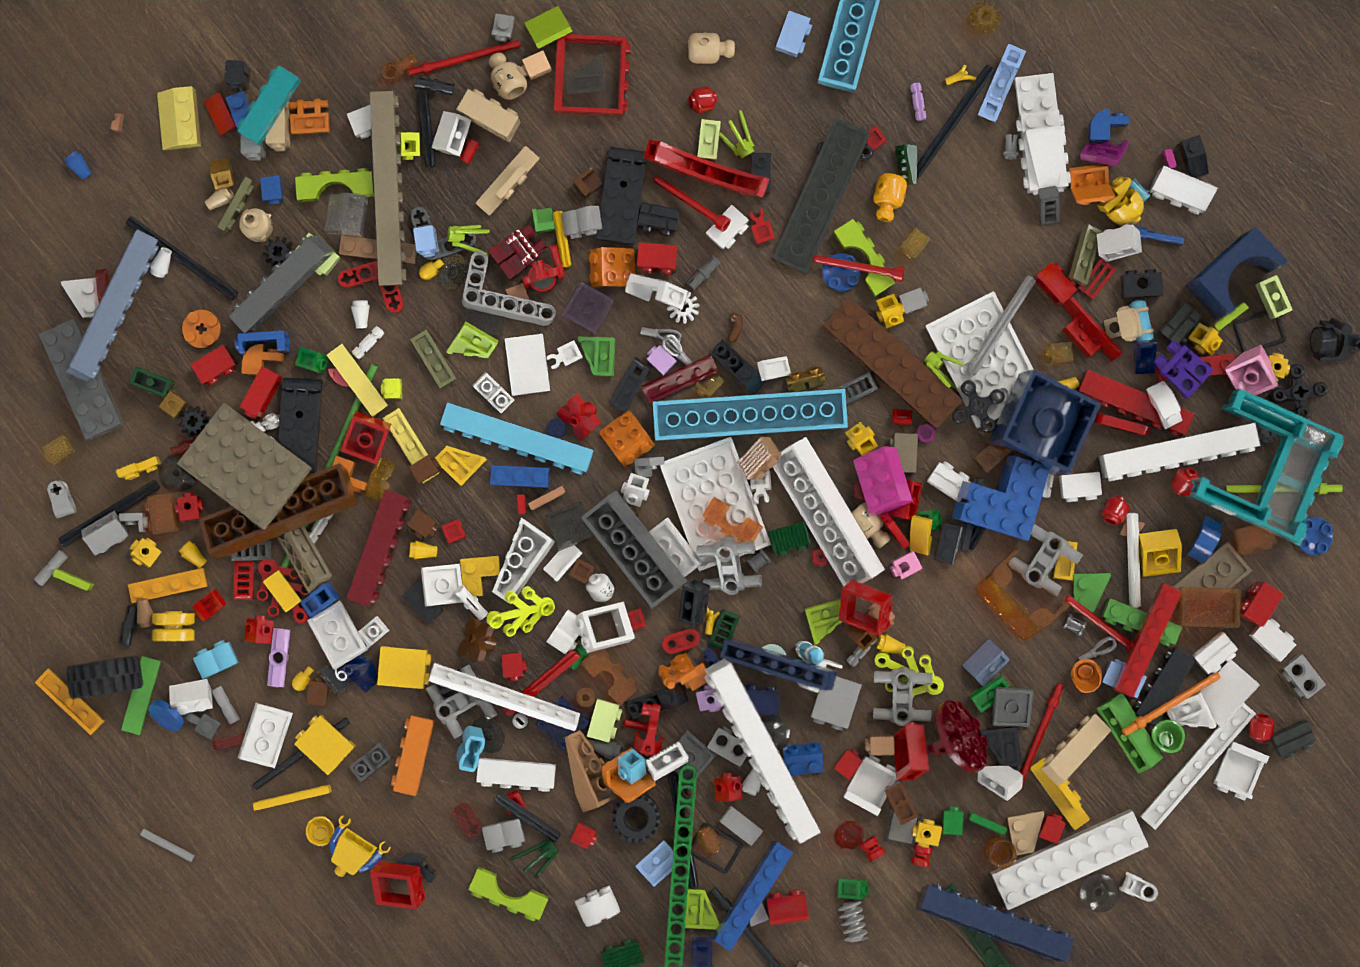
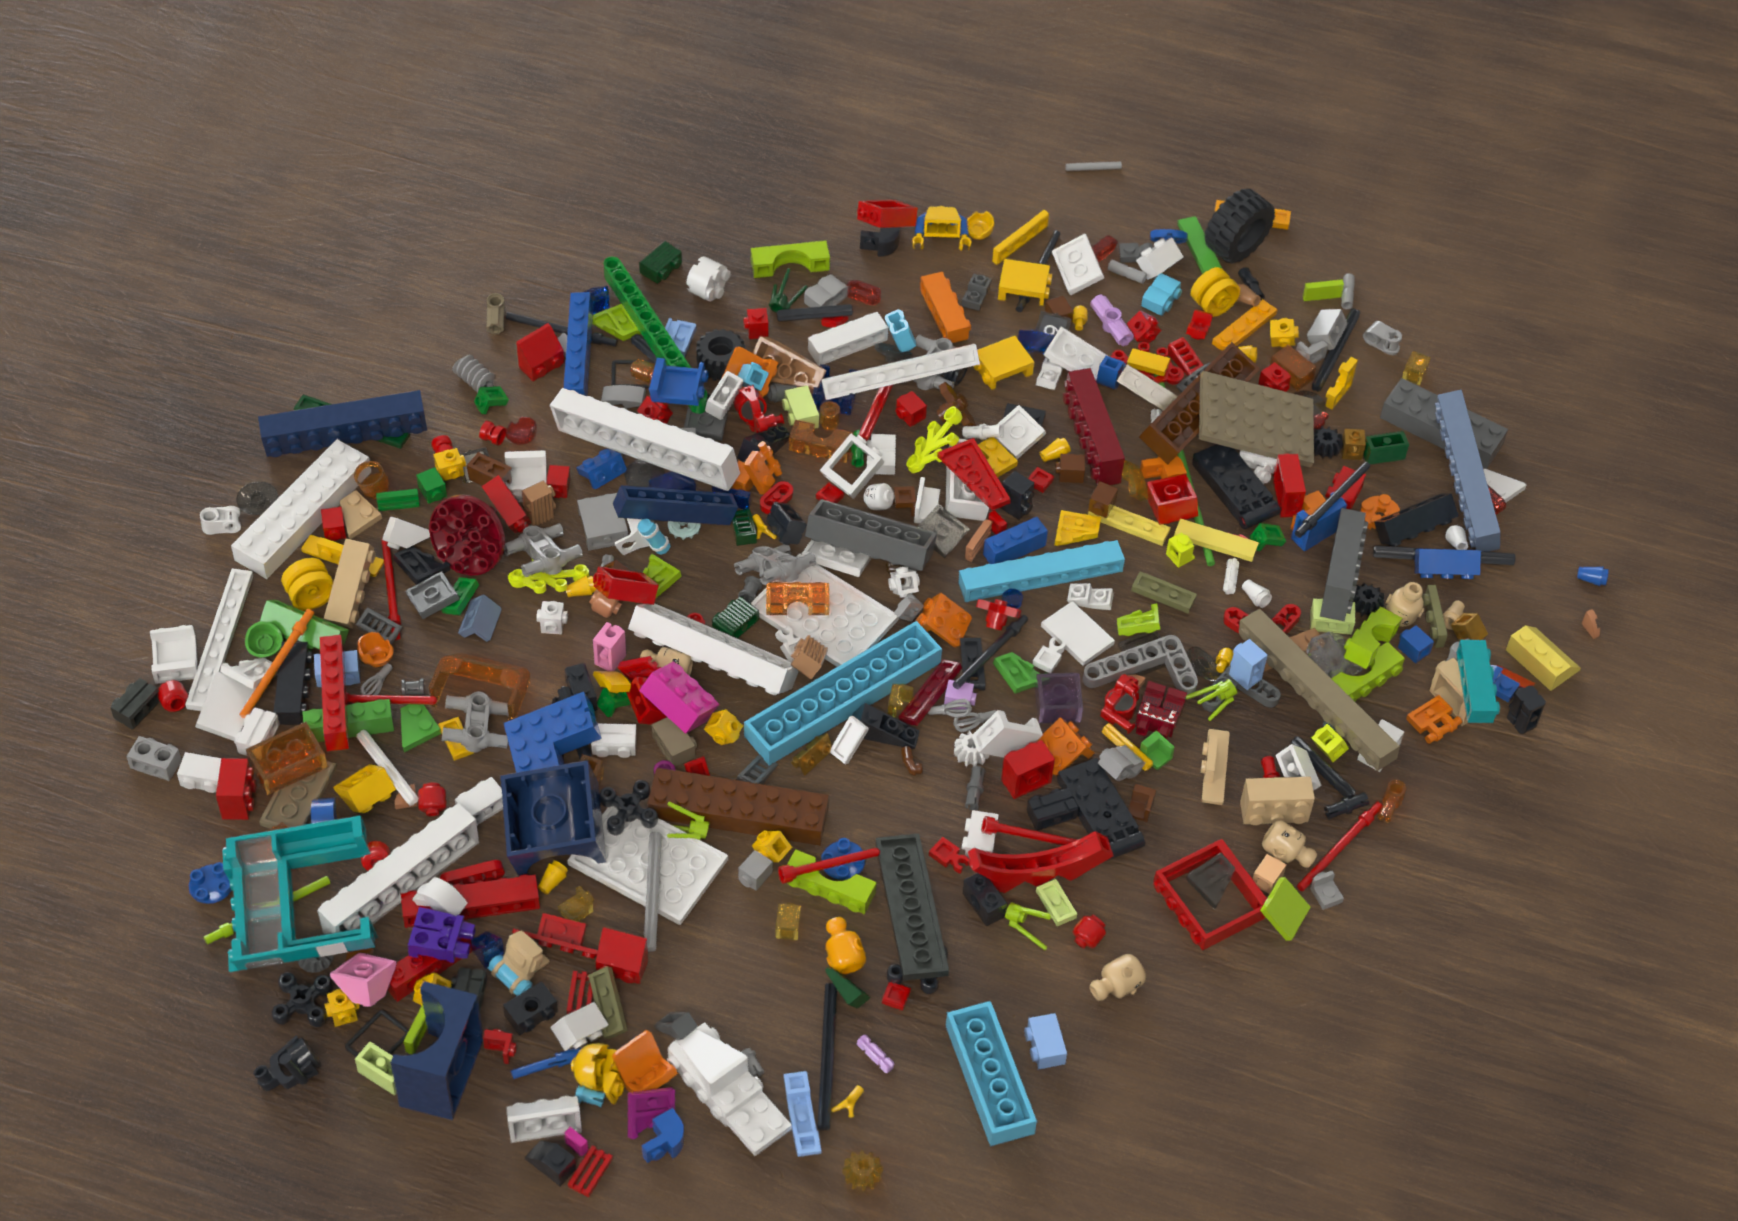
camera: 140 degrees right, 35 degrees down
(181, 299) = (1416, 519): none -> black brick
(188, 244) = (1447, 563): none -> blue brick
(283, 331) = (1311, 520): none -> black bar
(325, 198) = (1364, 644): none -> lime arch
(489, 516) = (1020, 493): none -> black brick
(514, 557) = (975, 472): none -> red wing
(615, 381) = (1011, 631): none -> black bar
(700, 791) = (677, 384): none -> blue panel
(924, 623) = (552, 617): none -> white brick
(1078, 703) = (367, 617): none -> dark grey slope
(1106, 774) = (307, 583): none -> yellow wheel
(1178, 274) = (500, 1041): none -> red bracket
(1183, 126) = (599, 1155): none -> red tile

